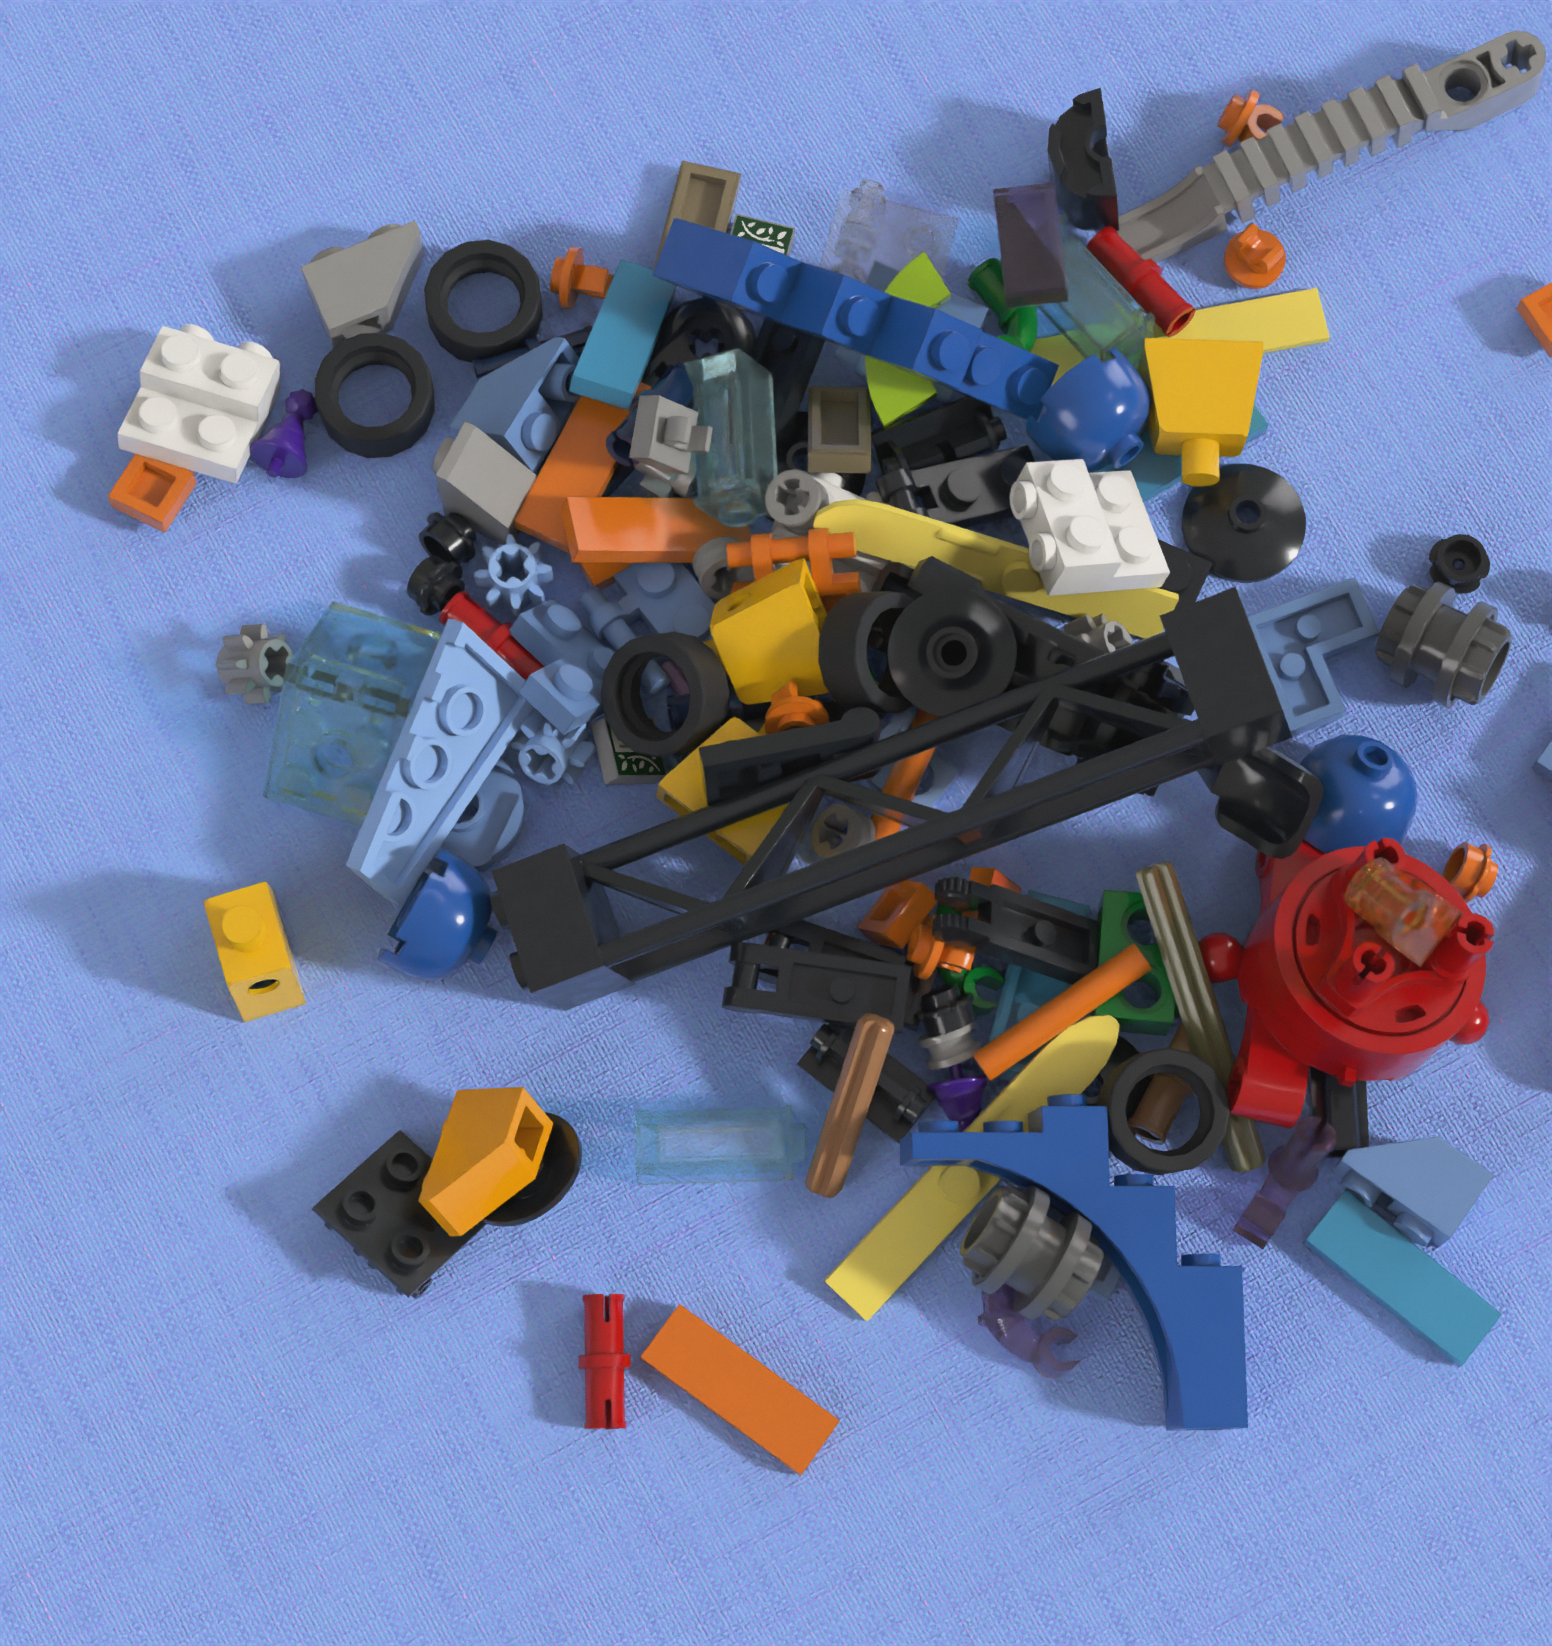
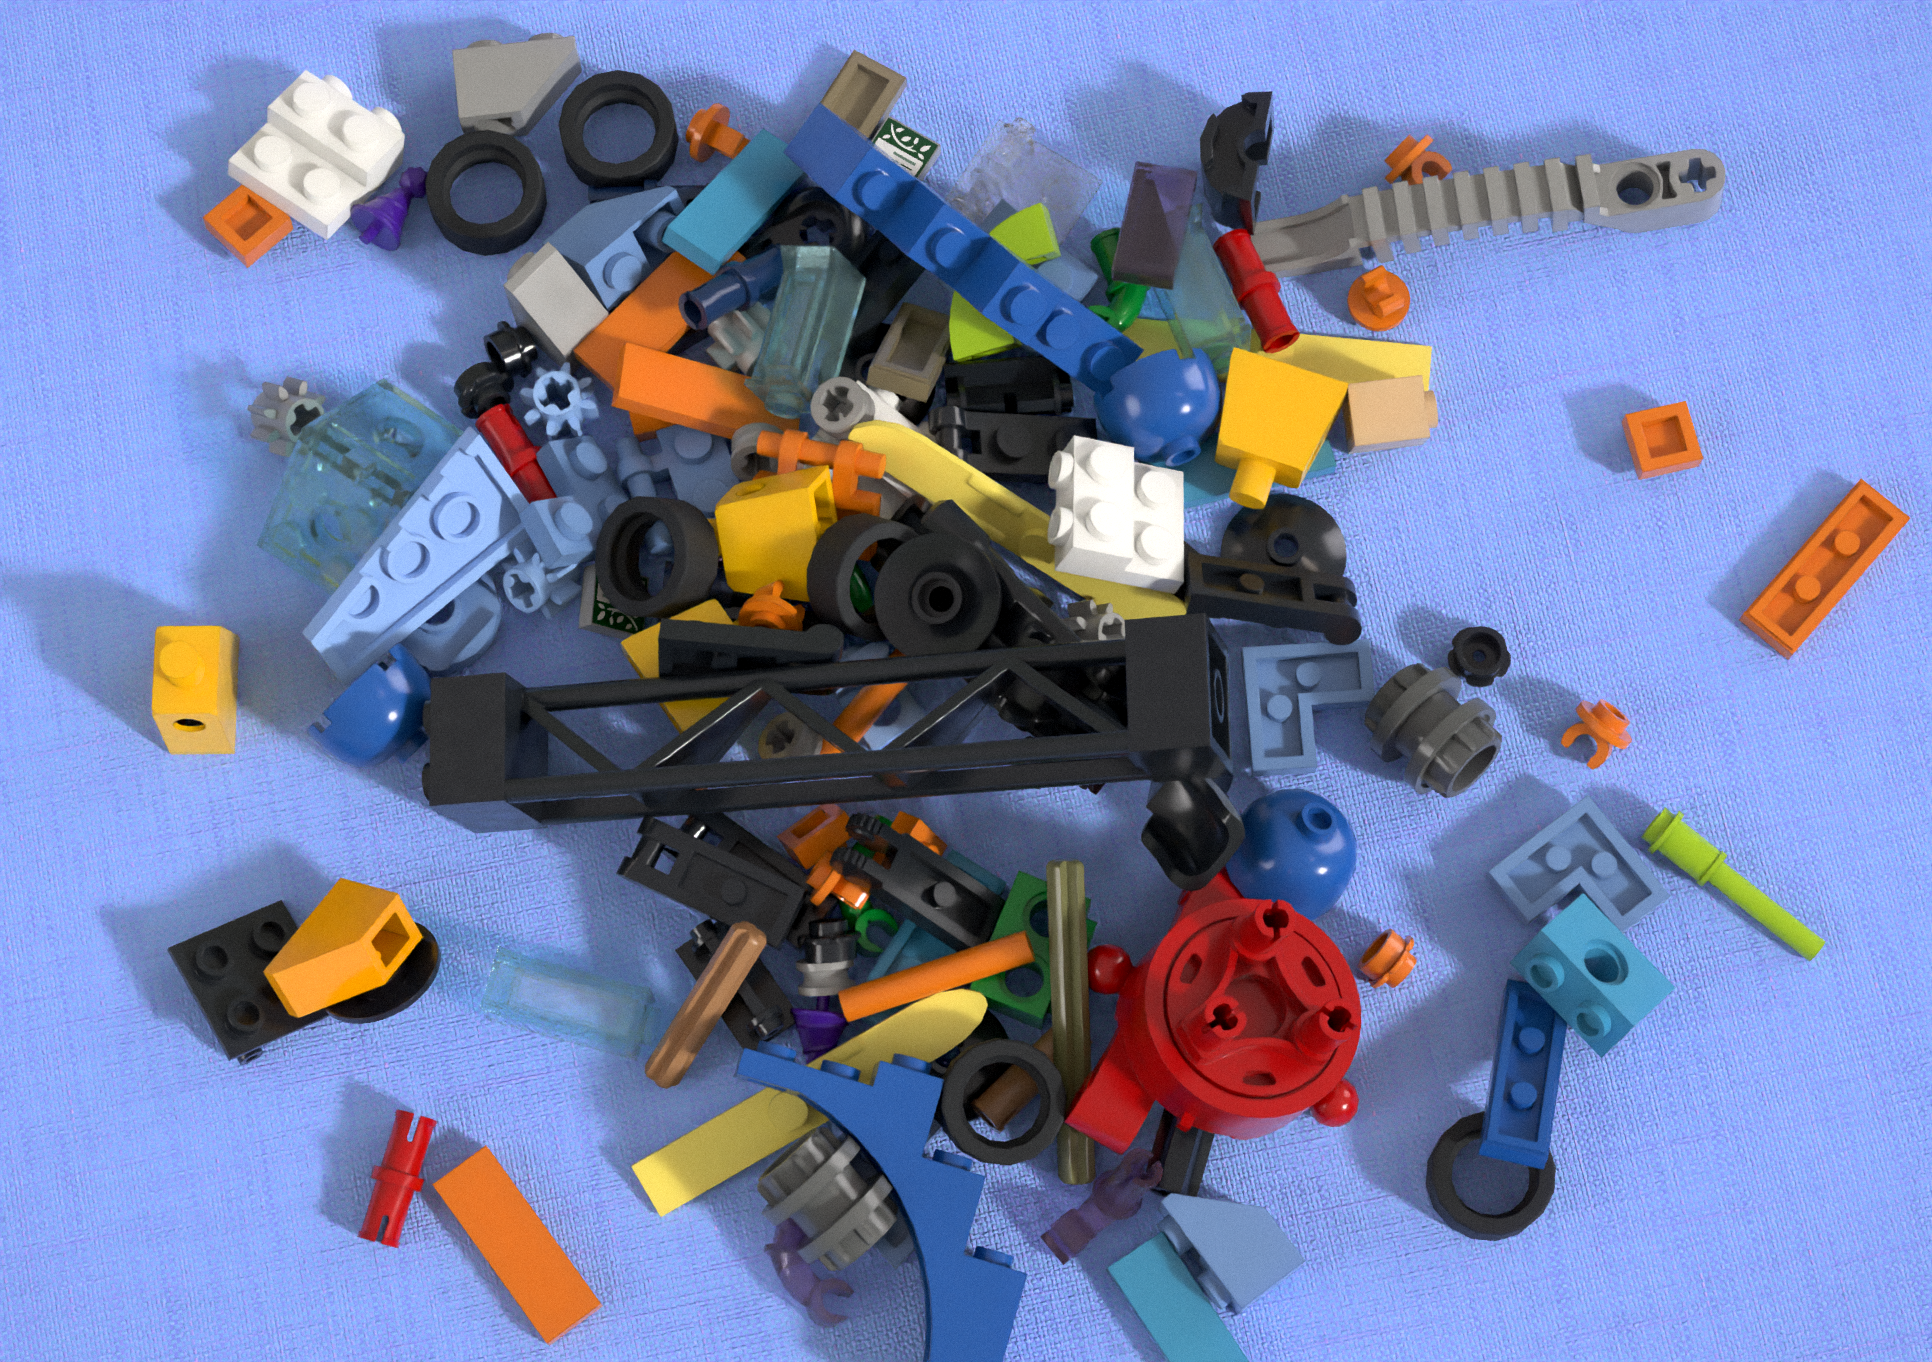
camera: 20 degrees right, 0 degrees up
(667, 435) = (737, 309): light grey tile -> none
(1254, 562) = (1272, 596): none -> black plate
(1303, 362) = (1388, 414): none -> tan brick
(1401, 908) = (1276, 974): clear orange piece -> none

